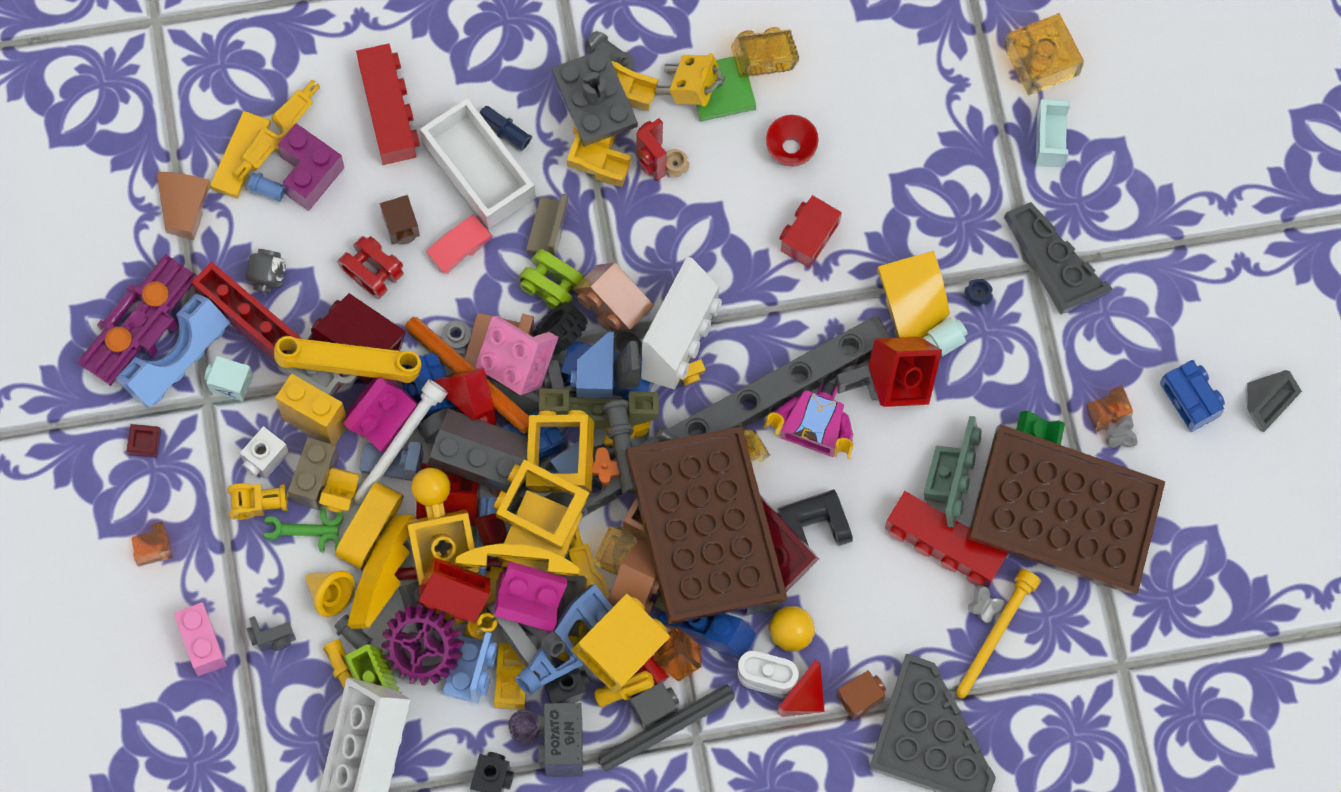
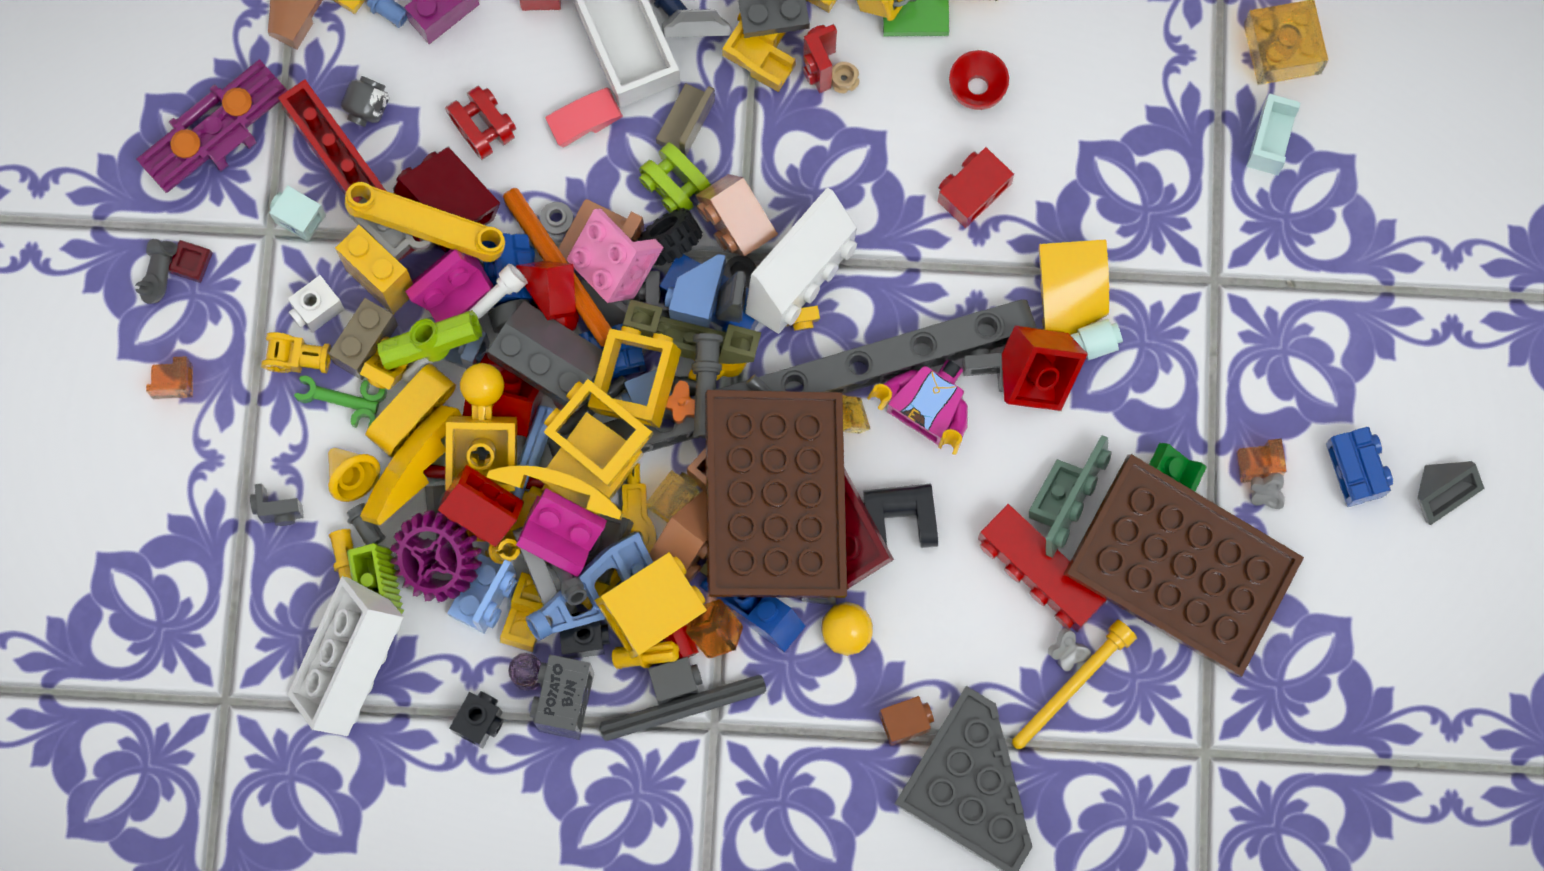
camera: 15 degrees right, 5 degrees up
(118, 464) = (155, 282): none -> dark grey piece
(198, 327) = (276, 150): light blue arch -> none
(200, 639) = (197, 495): bright pink brick -> none
(374, 460) = (429, 340): none -> lime piece
(400, 220) = (524, 76): reddish brown brick -> none
(491, 529) = (539, 446): dark red tile -> none
(539, 143) = (695, 23): none -> light grey slope
(767, 673) = (807, 674): white brick -> none
(806, 695) = (844, 707): red slope -> none
(982, 286) = (1146, 288): dark blue plate -> none
(1057, 265) = (1241, 280): dark grey wing -> none

